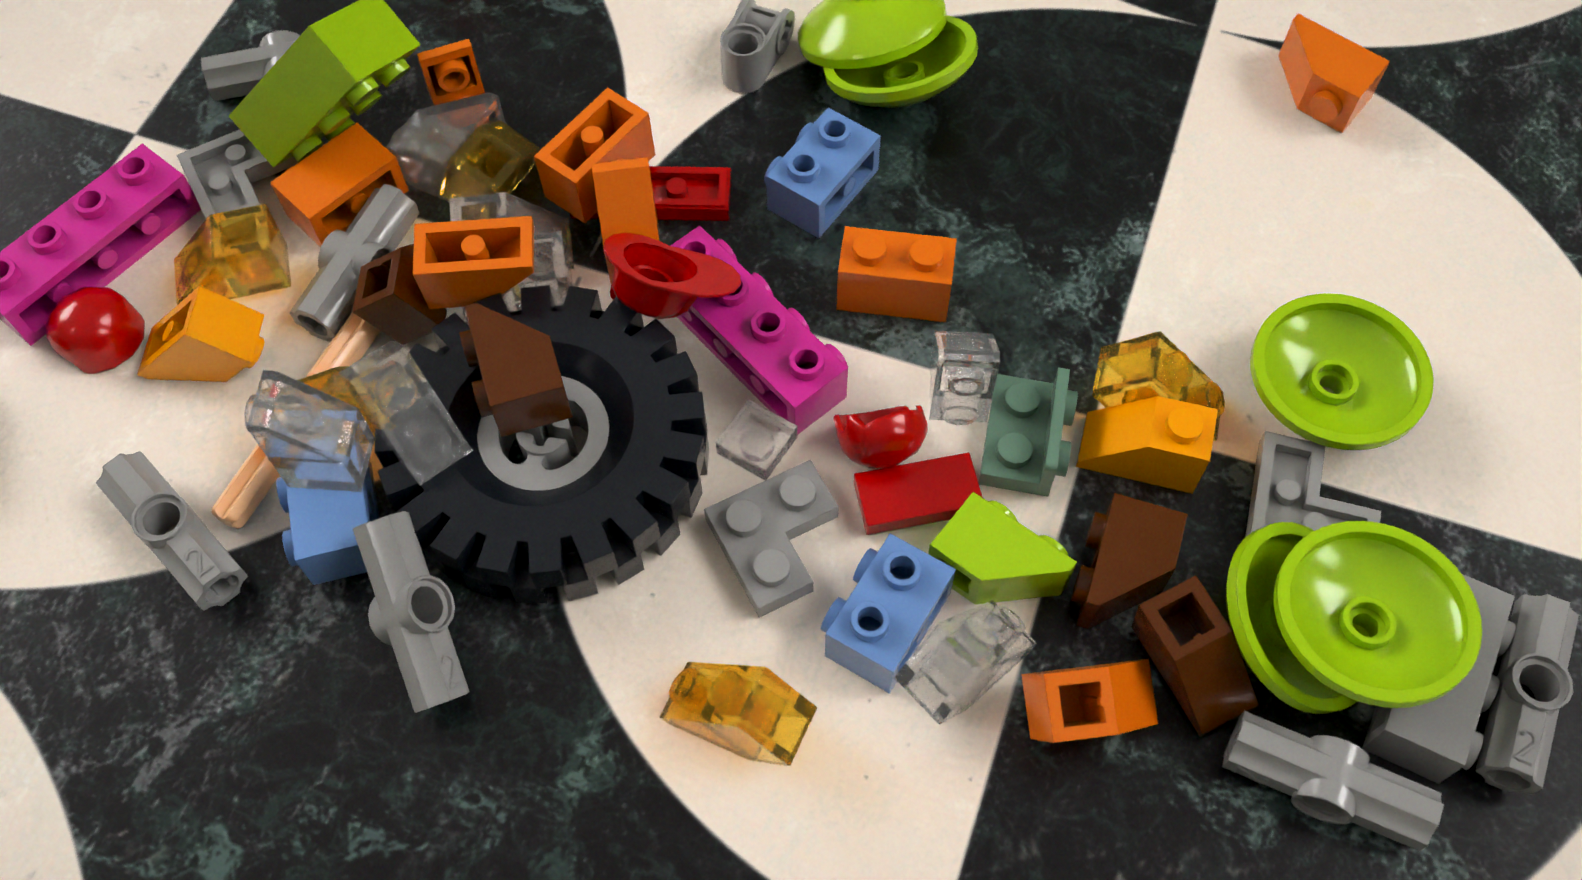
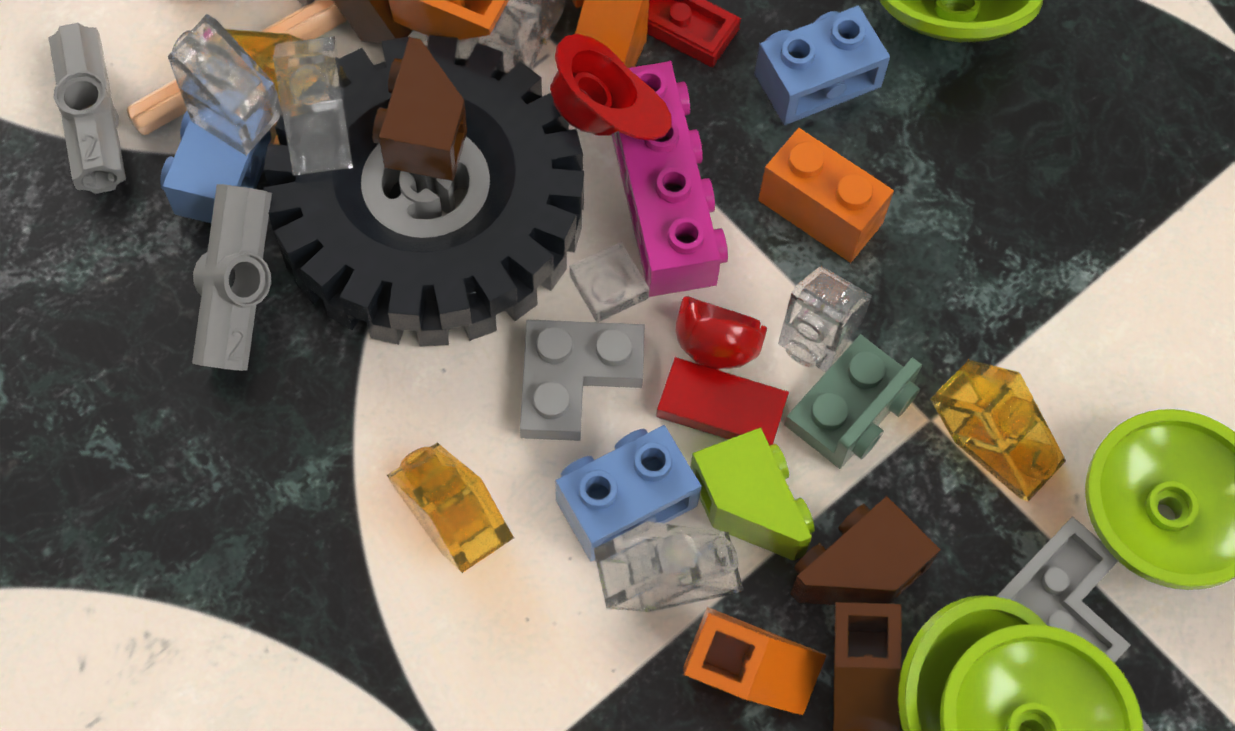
camera: 25 degrees right, 5 degrees up
(1150, 442) = (958, 469): light orange slope -> none

